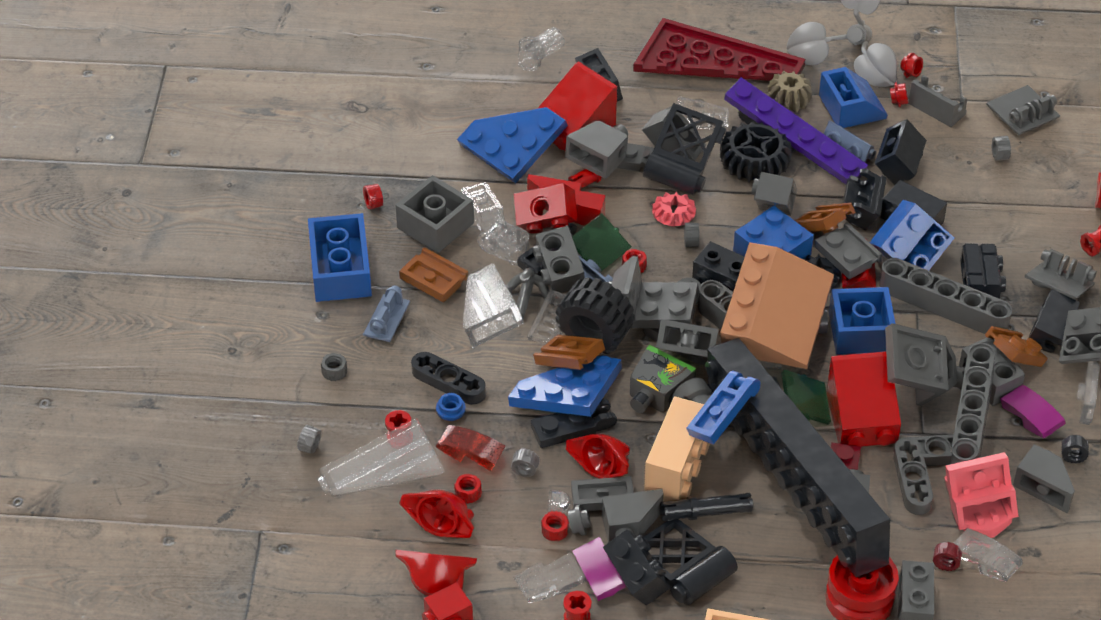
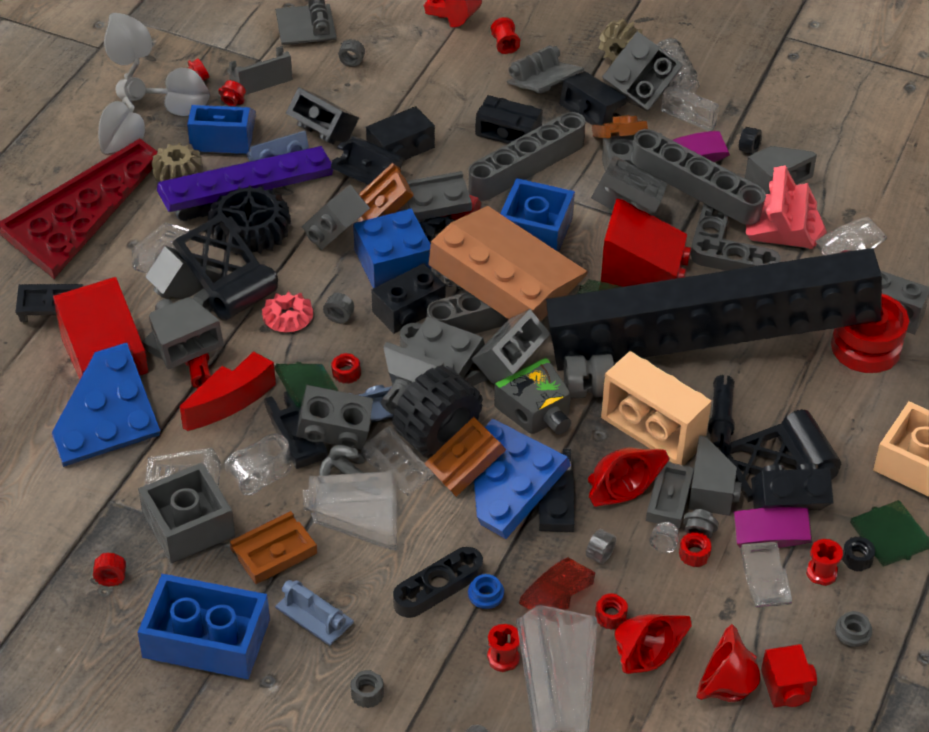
camera: 70 degrees left, 0 degrees up
(531, 204) = (229, 419): brick -> none
(722, 407) = (653, 333): blue plate -> none
(912, 236) = (447, 143): blue slope -> none

